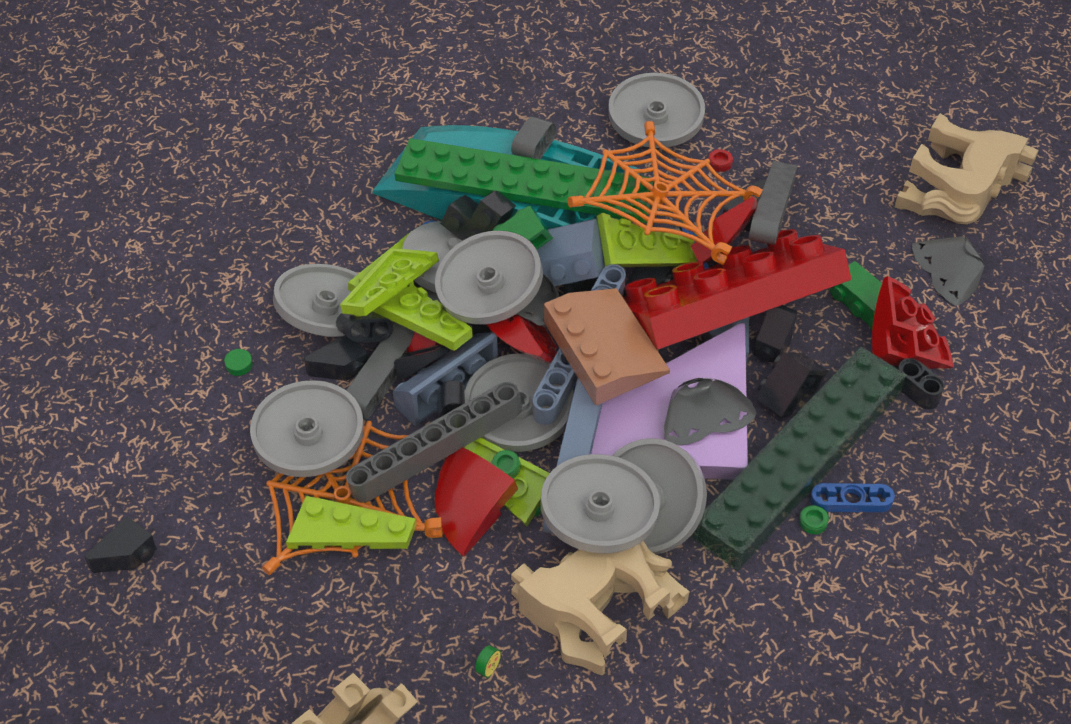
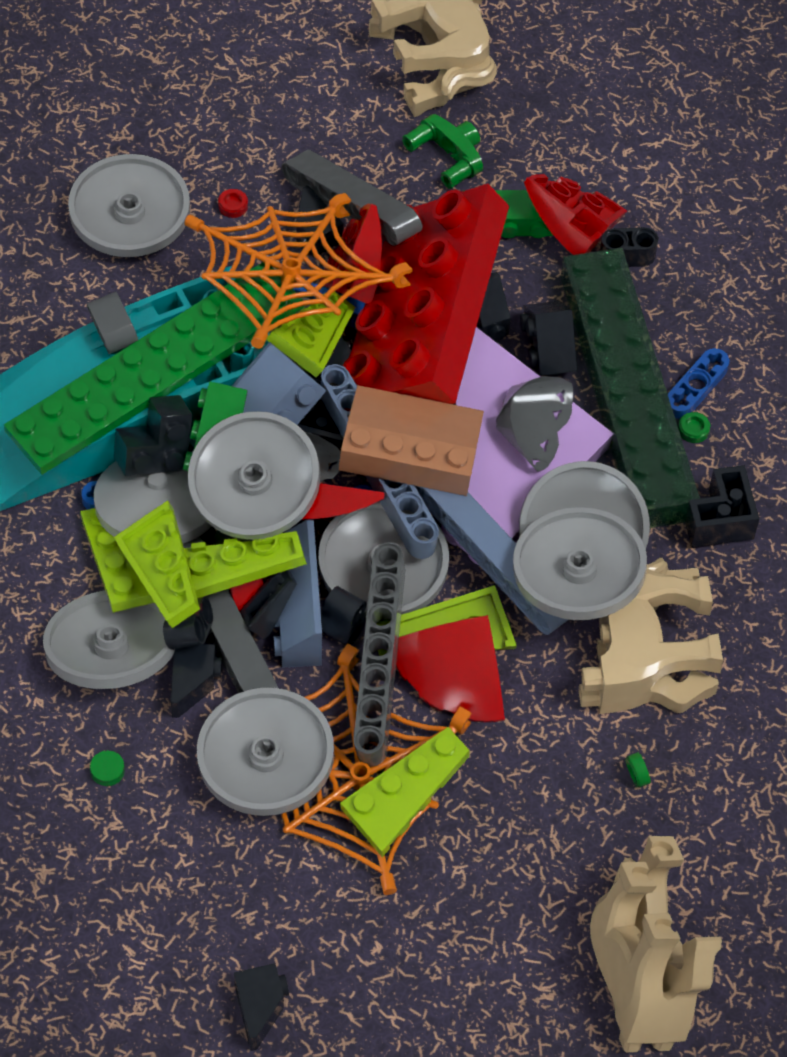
camera: 55 degrees left, 5 degrees up
(507, 462) = (448, 611): green tile -> none
(751, 582) = (727, 513): none -> black brick
(897, 237) = (452, 139): none -> green connector
(951, 260) = (521, 123): dark grey piece -> none

